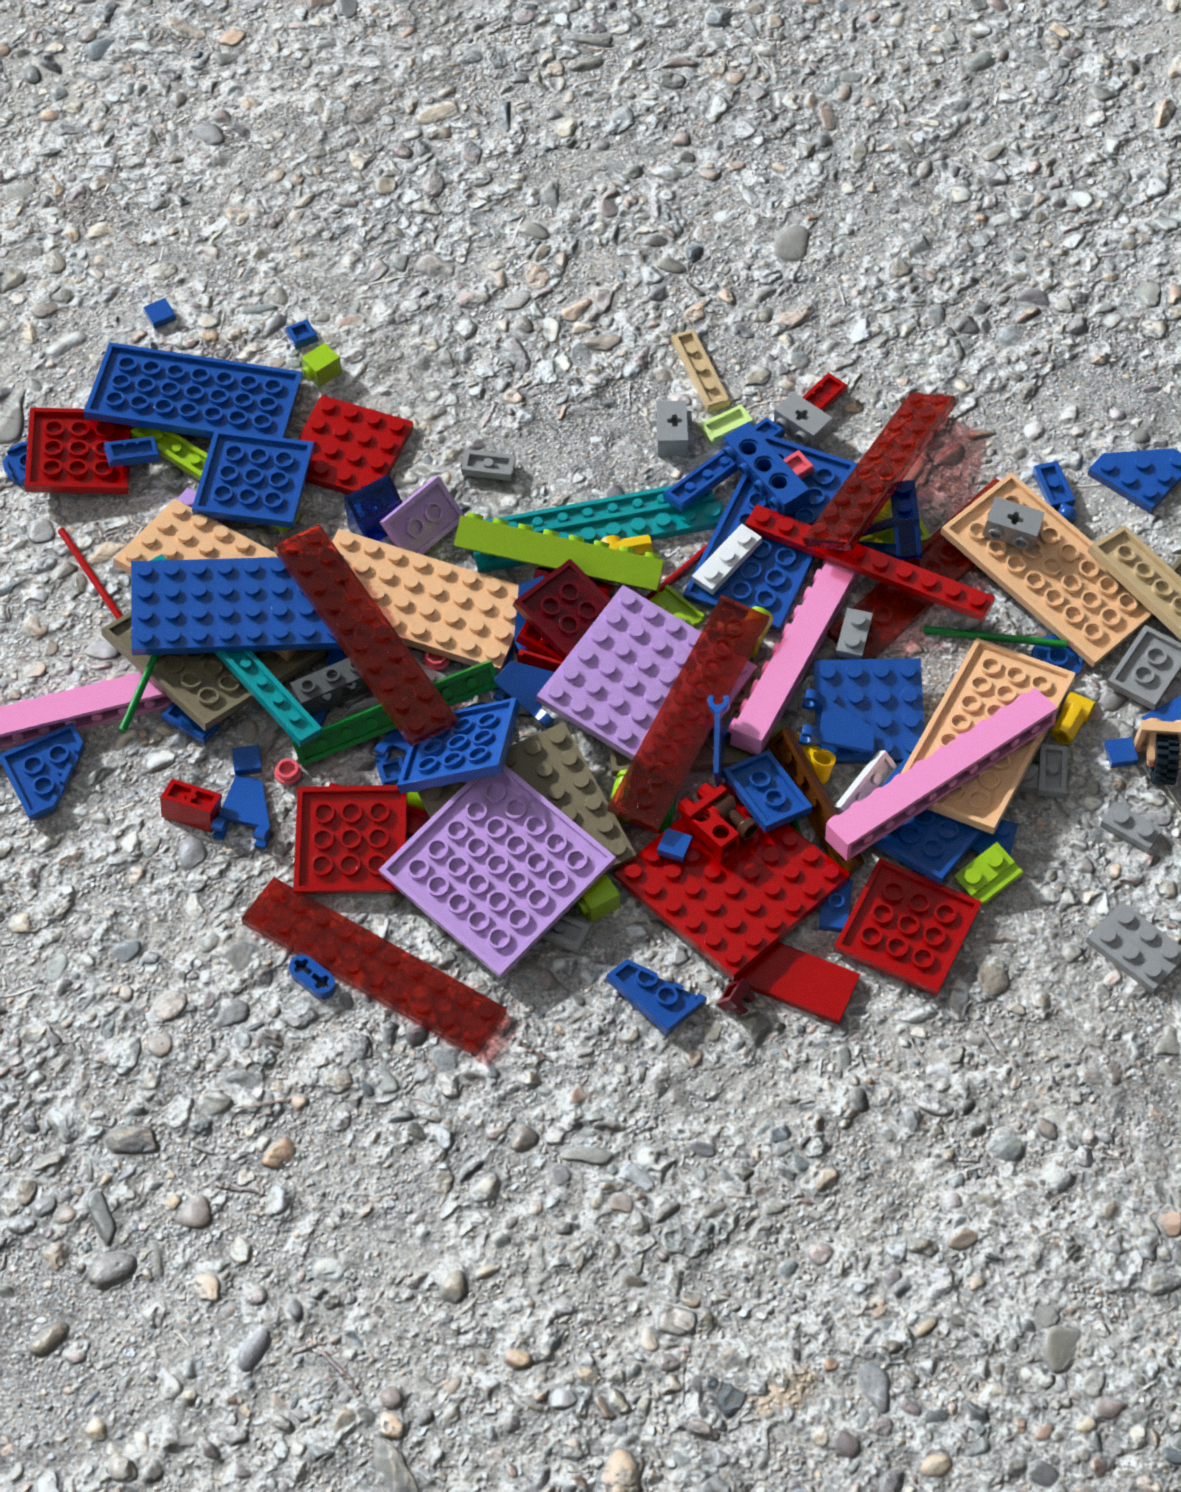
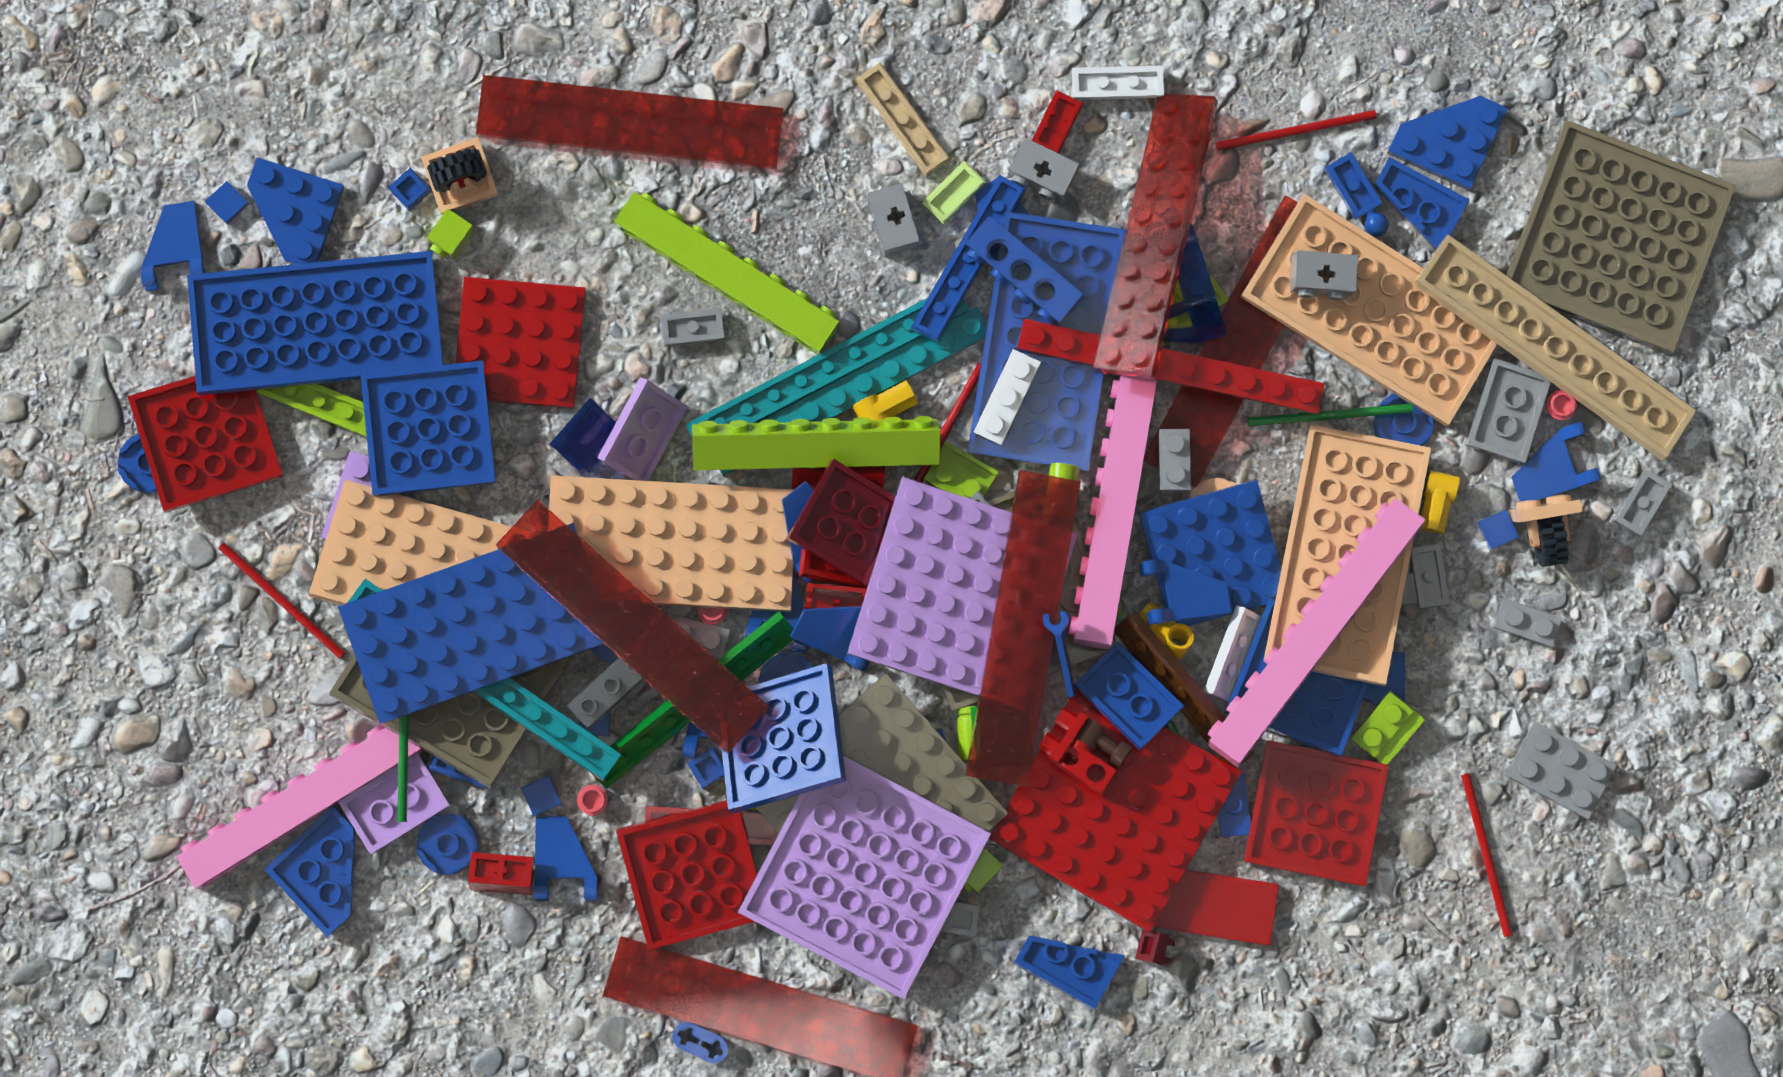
camera: 20 degrees left, 25 degrees up
(108, 746) = (375, 805): none -> lavender plate
(111, 327) = (173, 242): none -> blue flag
(131, 451) = (271, 427): blue plate -> none
(152, 775) = (447, 843): none -> blue tile
(210, 325) = (295, 208): none -> blue plate
(343, 325) = (460, 175): none -> plate
(487, 328) = (629, 122): none -> clear red plate
(528, 434) = (726, 273): none -> lime brick
(674, 845) = (1046, 791): blue tile -> none
(799, 464) = (1057, 253): coral tile -> none
(879, 379) = (1117, 82): none -> white plate
(1016, 442) = (1296, 130): none -> red axle
(1055, 1004) = (1486, 854): none -> red axle
(1107, 505) = (1422, 201): none -> blue wing

